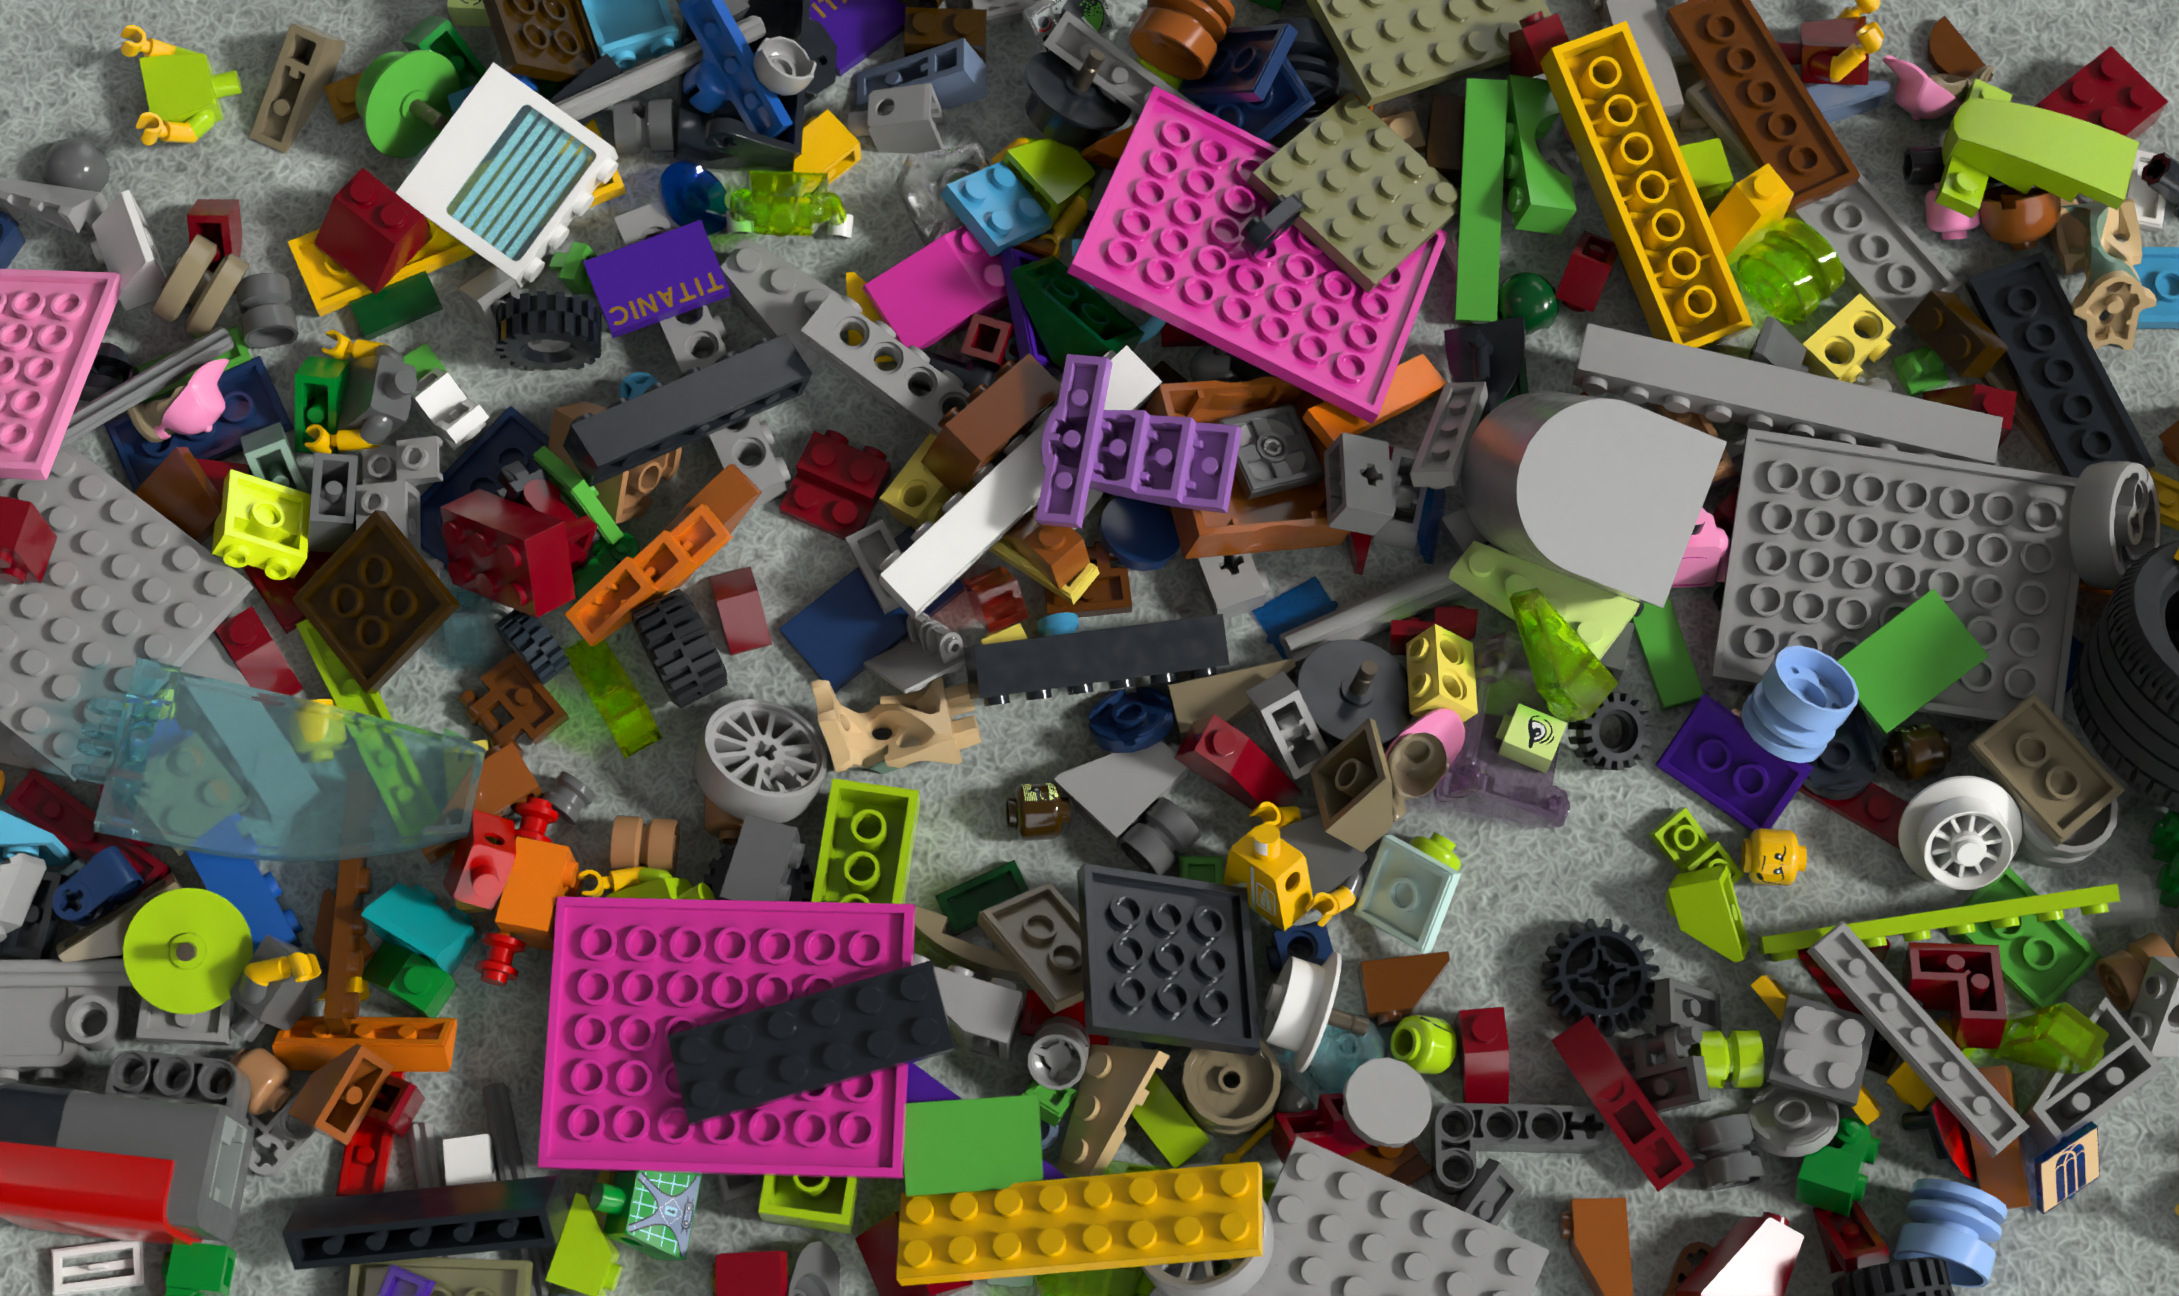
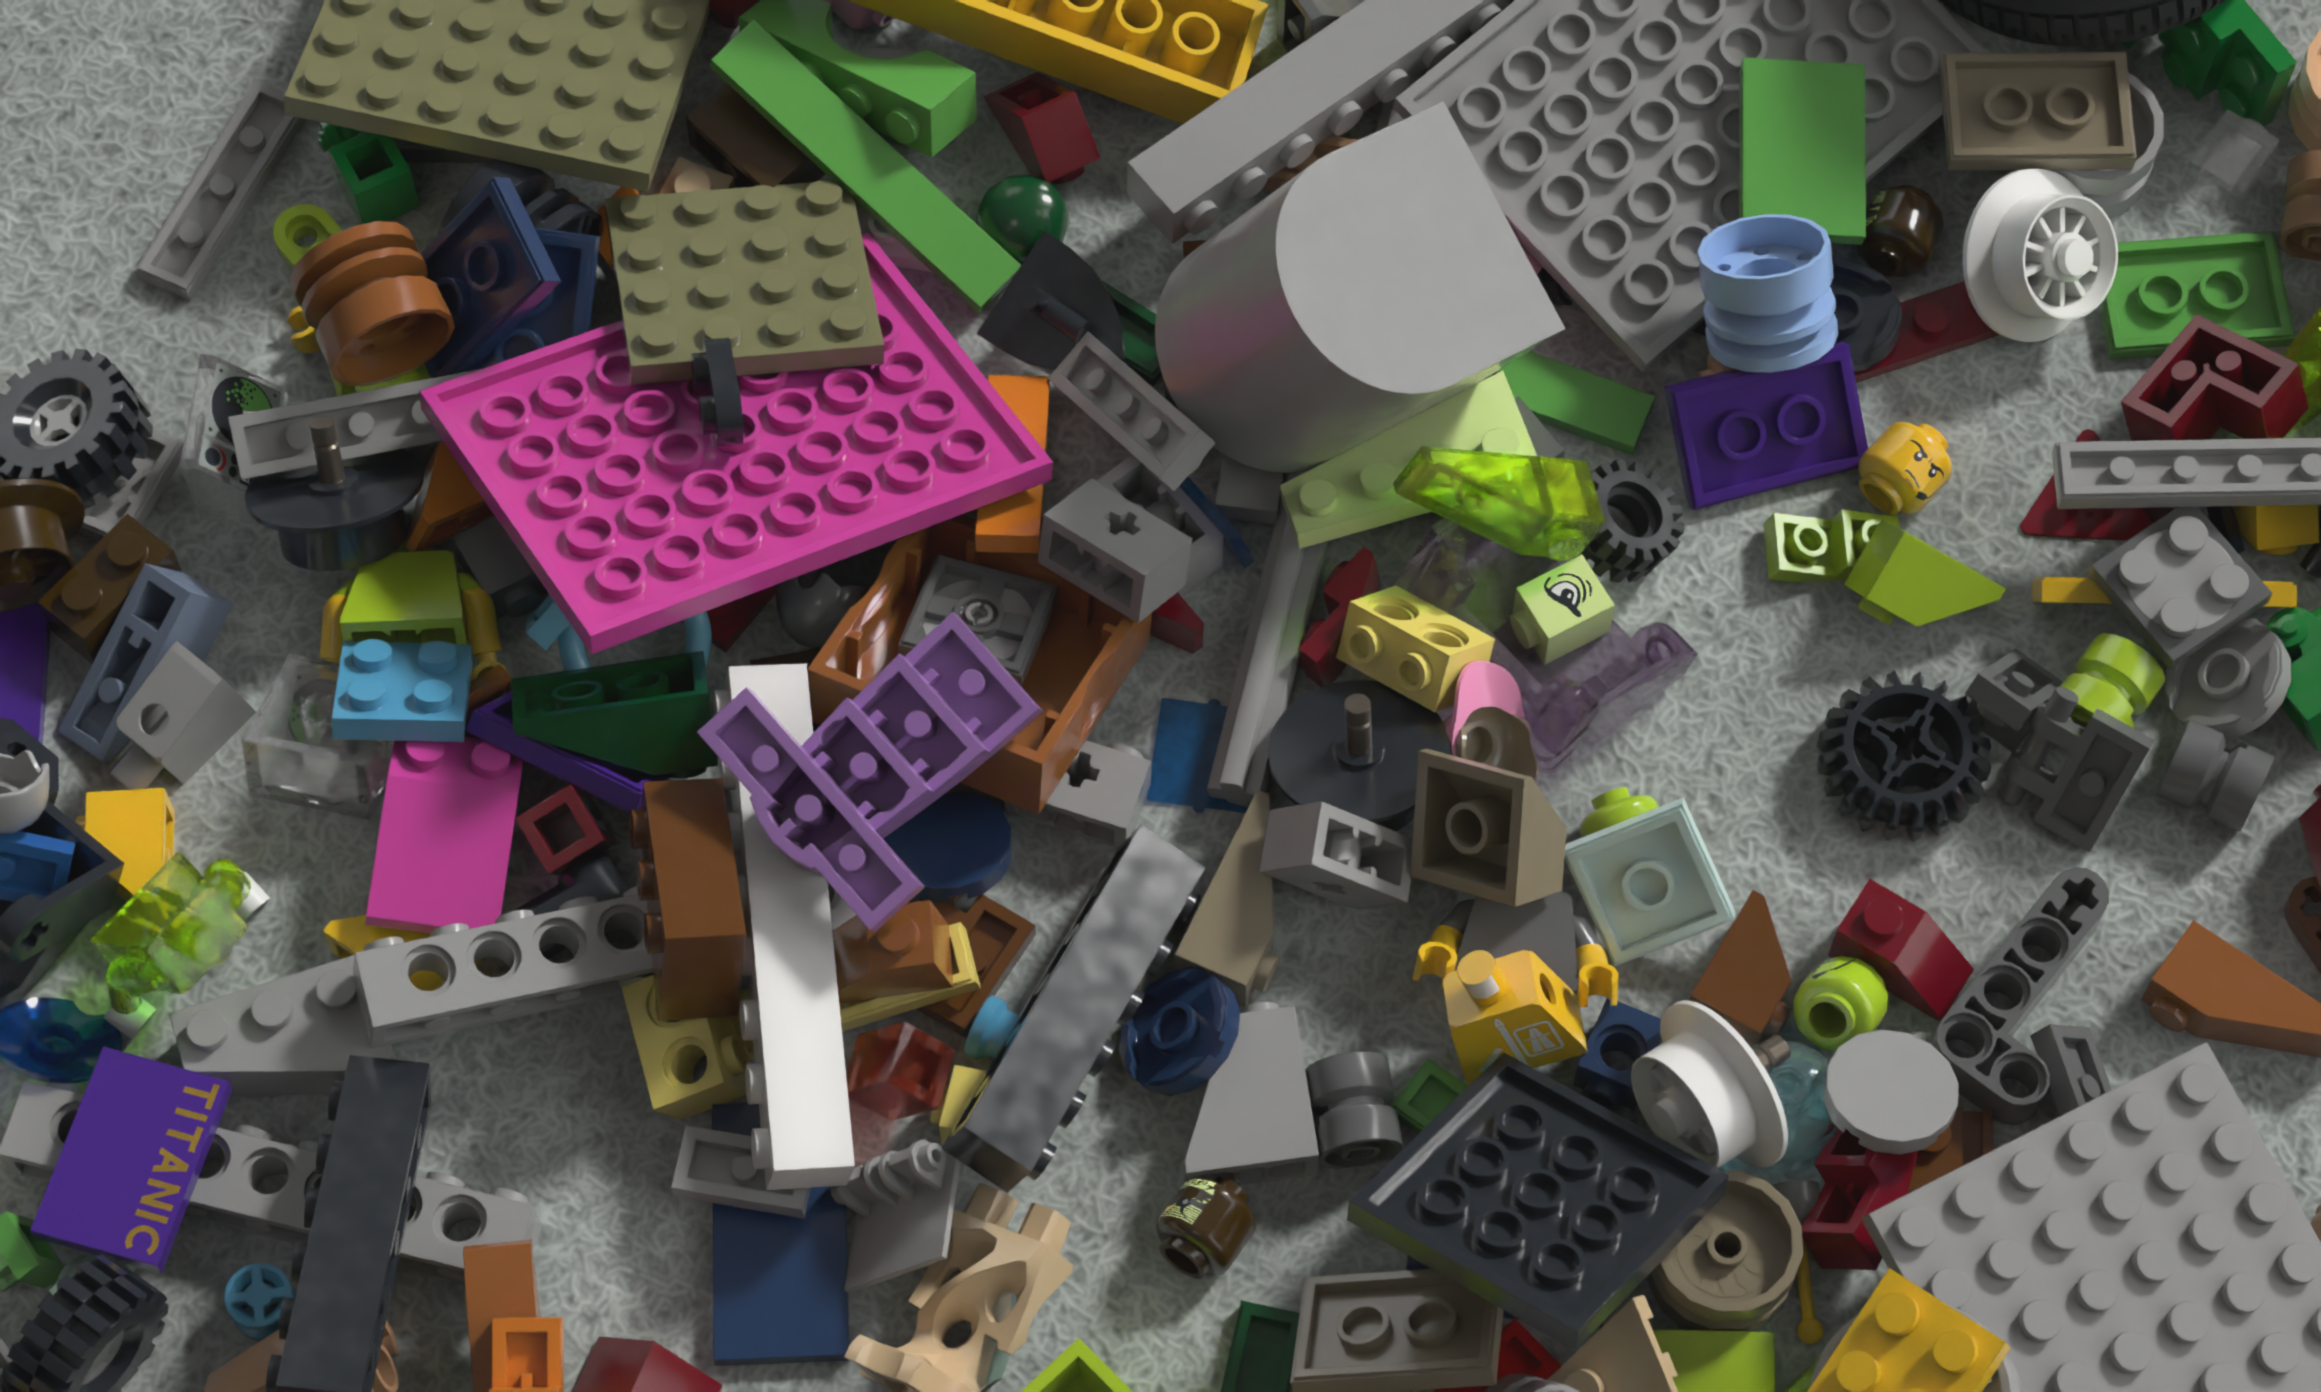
camera: 50 degrees left, 5 degrees down
(836, 485) = (584, 1154): dark red plate -> none
(1235, 764) = (1334, 953): dark red slope -> none
(1622, 1103) = (2076, 838): dark red slope -> none
(1957, 920) = (2130, 336): lime plate -> none

